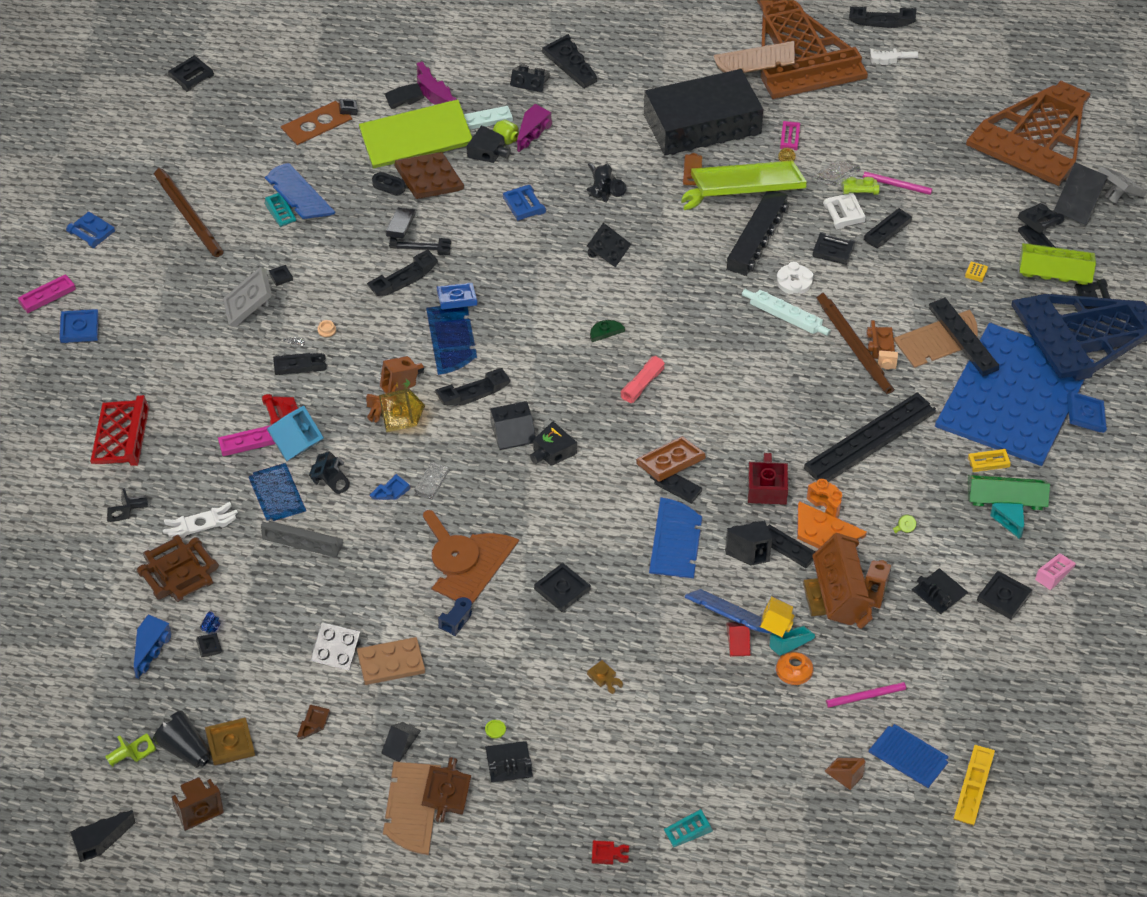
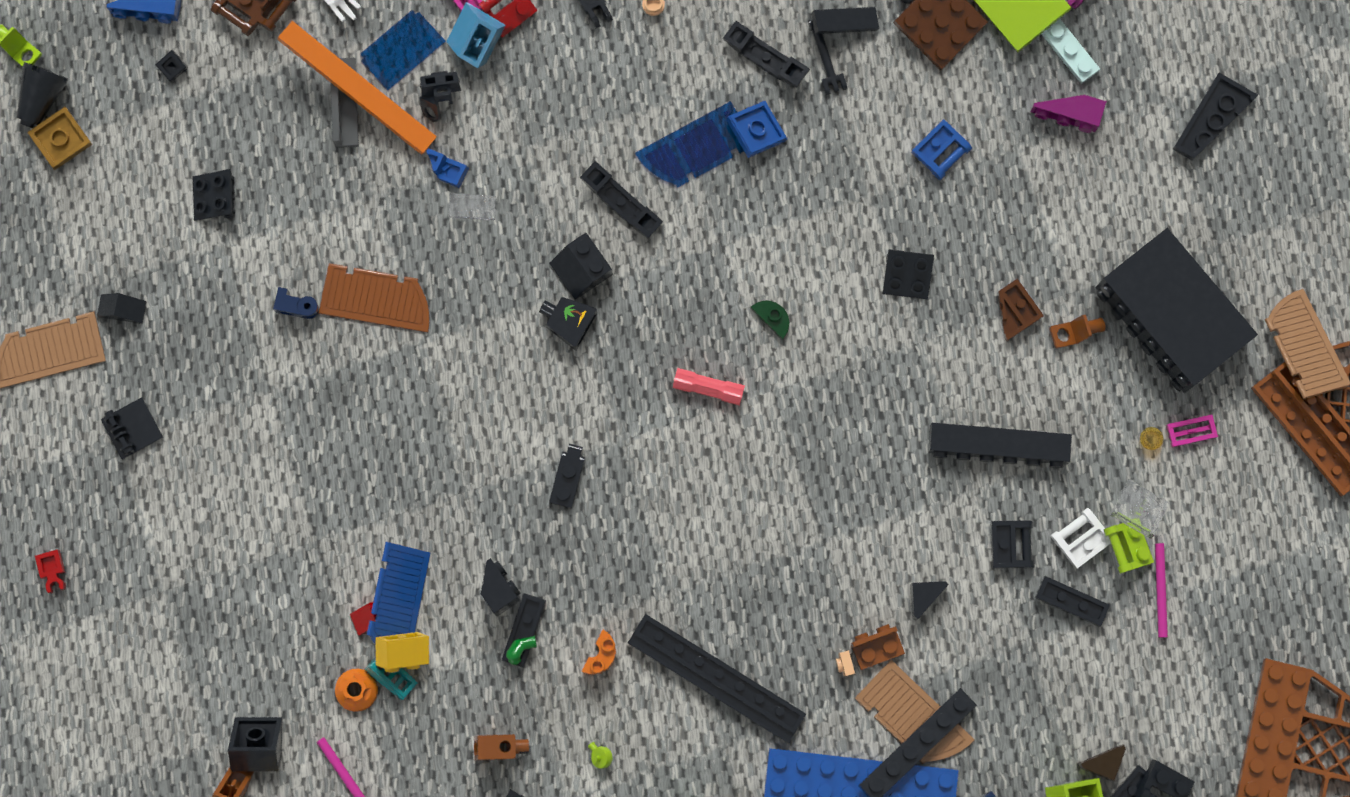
camera: 70 degrees right, 30 degrees up
(210, 623) = (198, 55): clear blue plate -> none
(298, 517) = (356, 87): none -> orange tile
(314, 721) = (115, 212): reddish brown slope -> none
(374, 403) = (556, 107): dark orange bracket -> none
(390, 661) = (217, 258): medium nougat plate -> none
(399, 372) = (602, 105): dark orange torso -> none
(401, 409) = (546, 137): clear yellow slope -> none
(446, 789) = (70, 378): reddish brown plate -> none
(447, 545) = (390, 259): dark orange piece -> none
(487, 146) = (1017, 71): black torso -> none
(495, 729) = (170, 399): lime piece -> none
(508, 130) = (1050, 84): lime head -> none
(528, 78) = (1161, 76): black bracket -> none
(562, 587) = (374, 402): black plate -> none
(602, 179) = (1013, 228): black animal -> none
(604, 675) = (275, 486): pearl gold plate -> none
(617, 188) = (1010, 251): black plate -> none
(662, 196) = (1017, 309): none -> reddish brown wing
(670, 458) = (598, 459): dark orange tile -> none
(675, 540) = (490, 502): blue piece -> none
(691, 835) = (119, 653): teal slope -> none
(695, 197) = (1036, 349): lime hand -> none
(748, 178) = (1082, 404): lime tile -> none
(767, 481) = (607, 566): dark red hinge -> none
(786, 311) = (883, 519): light aqua plate -> none
(792, 270) = (930, 518): white plate -> none
(801, 547) = (517, 648): none -> green arm
(814, 597) = (459, 685): pearl gold plate -> none
(816, 744) = (255, 744): none -> black slope
(817, 526) = (560, 665): orange wing -> none
(843, 581) = (477, 708): dark orange container -> none
(854, 303) = (923, 595): none -> black slope
(855, 343) = (862, 616): reddish brown piece -> none
(976, 271) = (1042, 731): yellow tile -> none
(1011, 242) = (1105, 764): none -> dark brown slope

